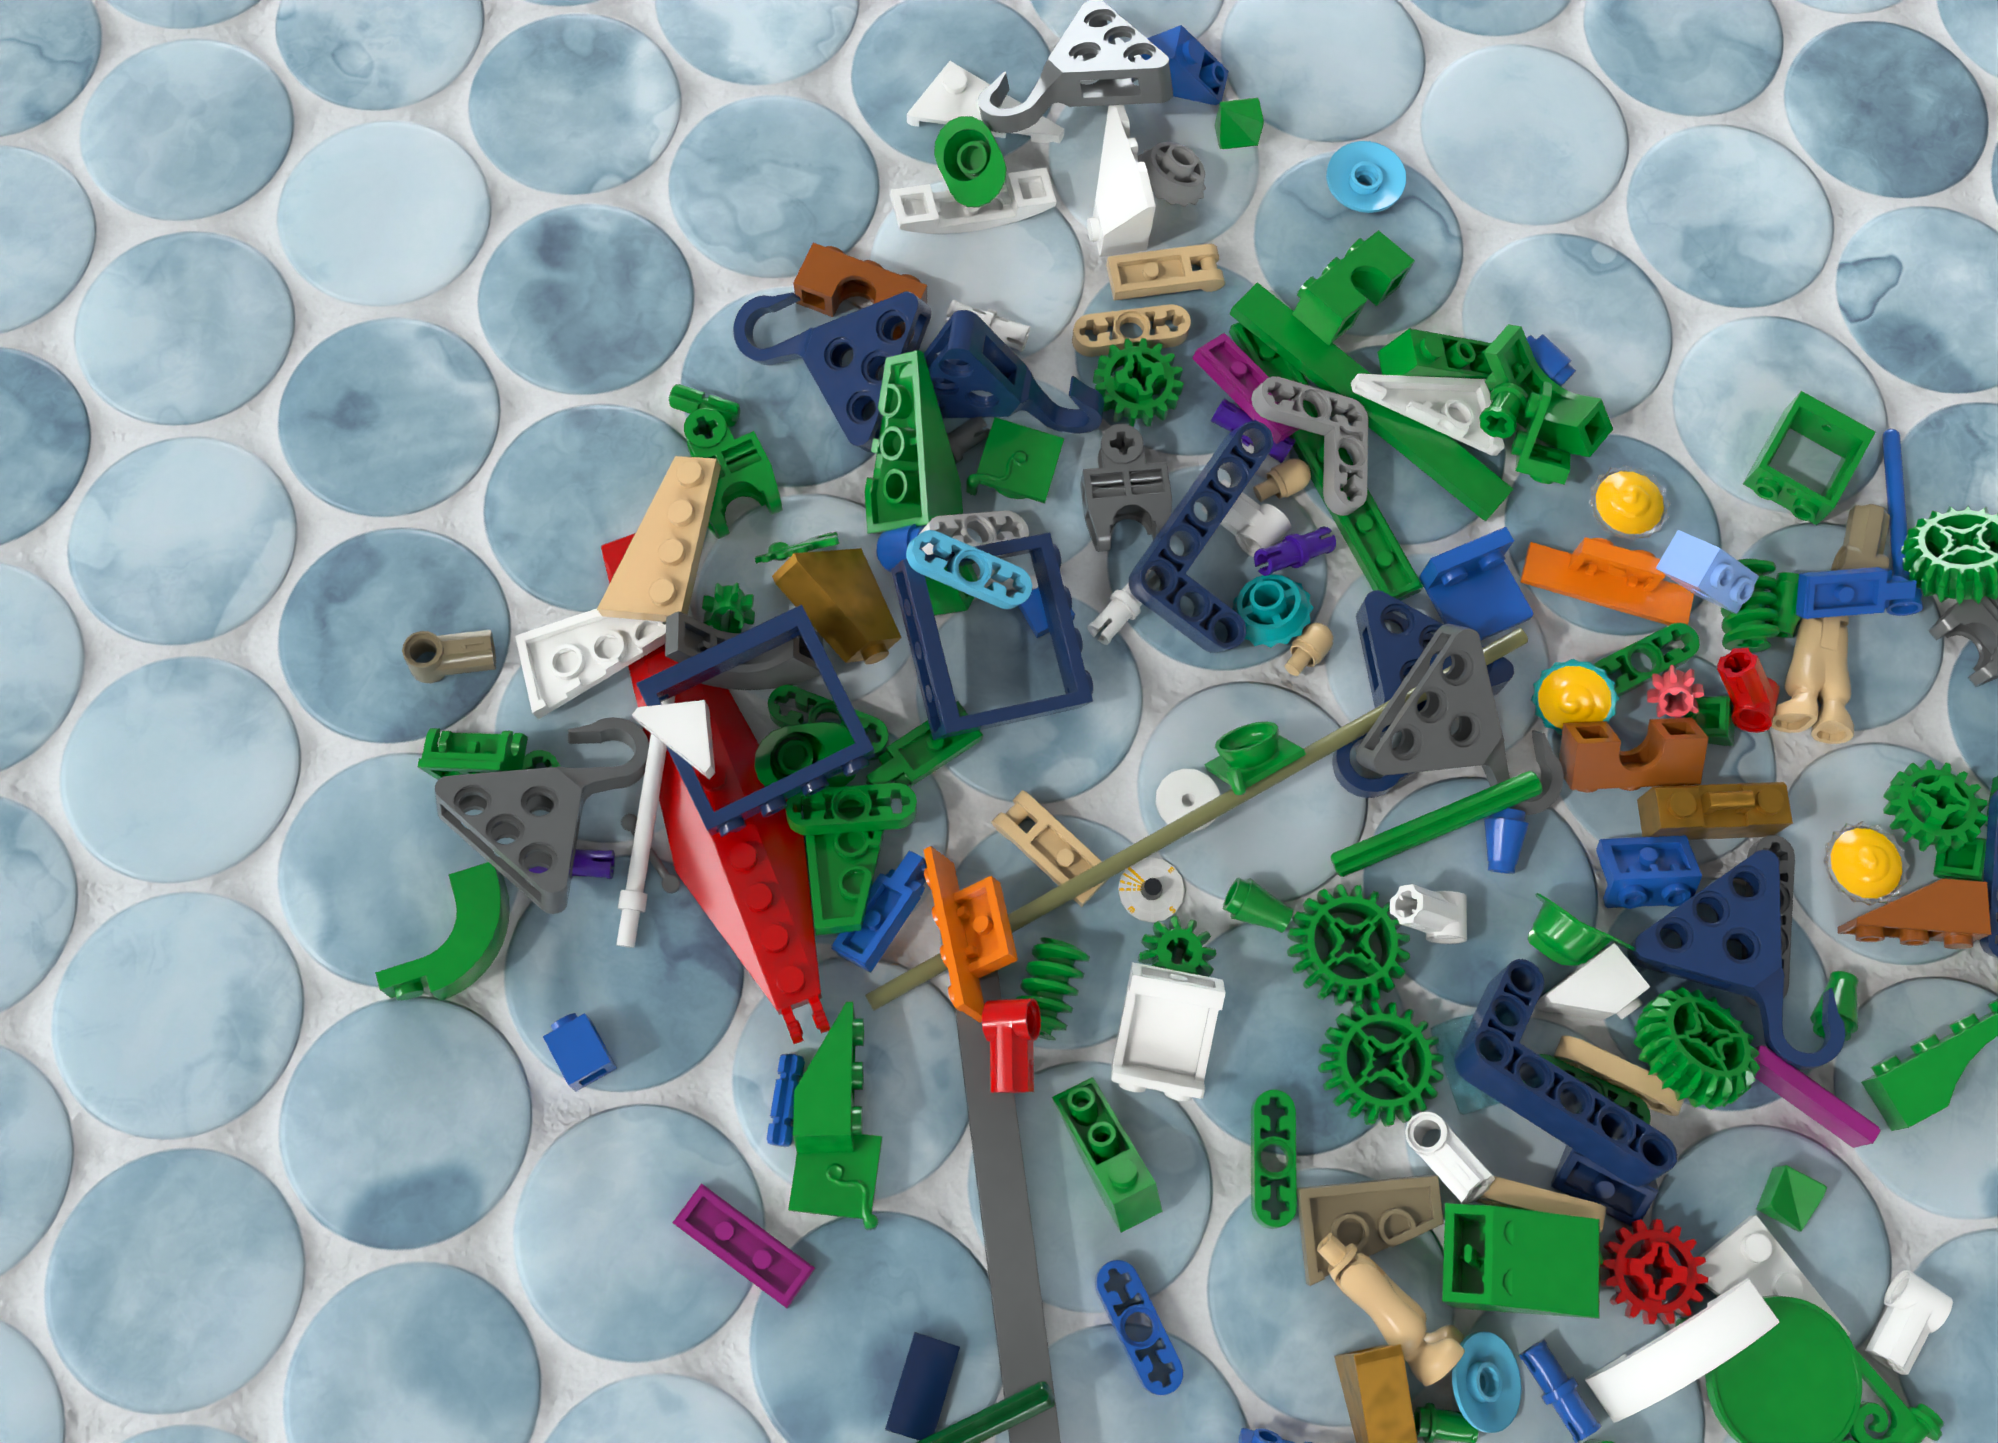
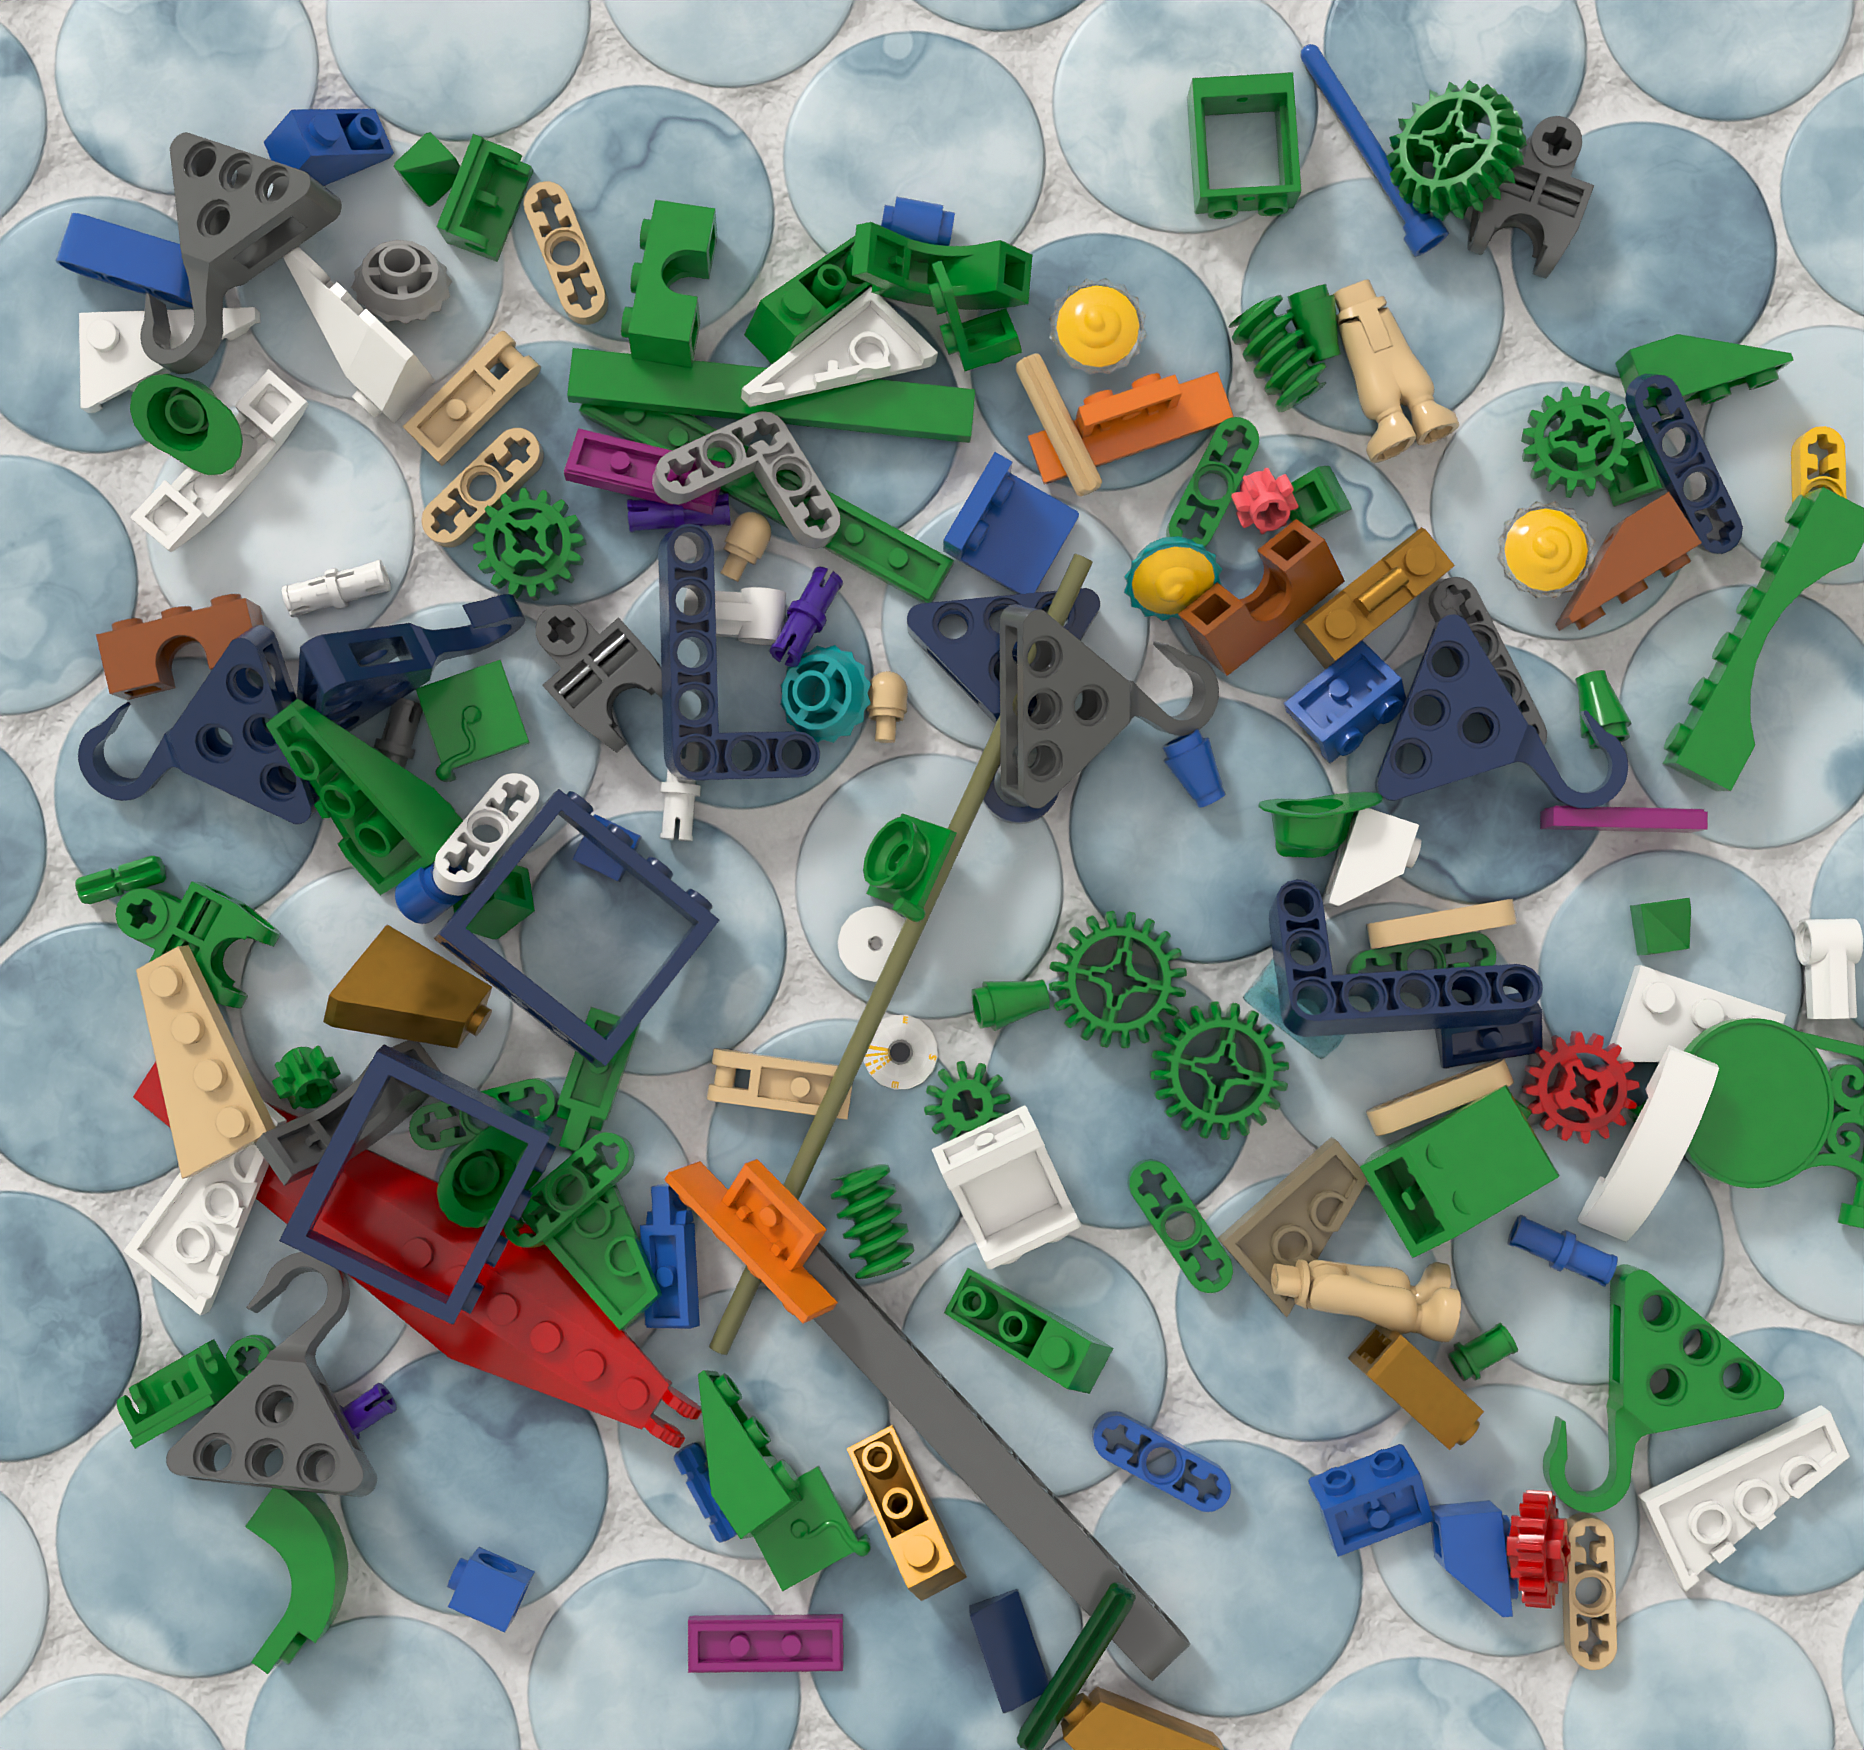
camera: 30 degrees left, 15 degrees up
(454, 654) = (77, 1311): dark tan piece -> none
(632, 899) = (430, 1414): white bar -> none
(669, 882) = (452, 1372): dark grey hinge -> none
(684, 729) = (362, 1260): white slope -> none
(780, 551) = (320, 981): green piece -> none
(919, 1225) = (906, 1514): none -> pearl gold slope
(993, 593) = (552, 896): medium azure beam -> none
(1003, 48) = (125, 259): none -> blue beam
(1011, 1029) = (868, 1299): red piece -> none
(1262, 162) = (484, 198): none -> green hinge
(1280, 241) = (566, 216): none -> tan beam
(1369, 164) = (599, 116): medium azure dish -> none
(1436, 823) = (1123, 803): green axle -> none
(1436, 913) = (1175, 895): white piece -> none
(1449, 1158) = (1338, 1120): white piece -> none
(1487, 1382) = (1495, 1292): medium azure dish -> none
(1501, 415) = (911, 318): green bush -> none
(1559, 547) = (1058, 424): none -> tan axle
(1696, 1048) = (1502, 879): green gear -> none
(1707, 572) = (1220, 362): light blue brick -> none
(1749, 690) = (1334, 449): red piece -> none
(1850, 592) = (1370, 275): blue hinge -> none
(1864, 539) = (1358, 220): dark tan piece -> none

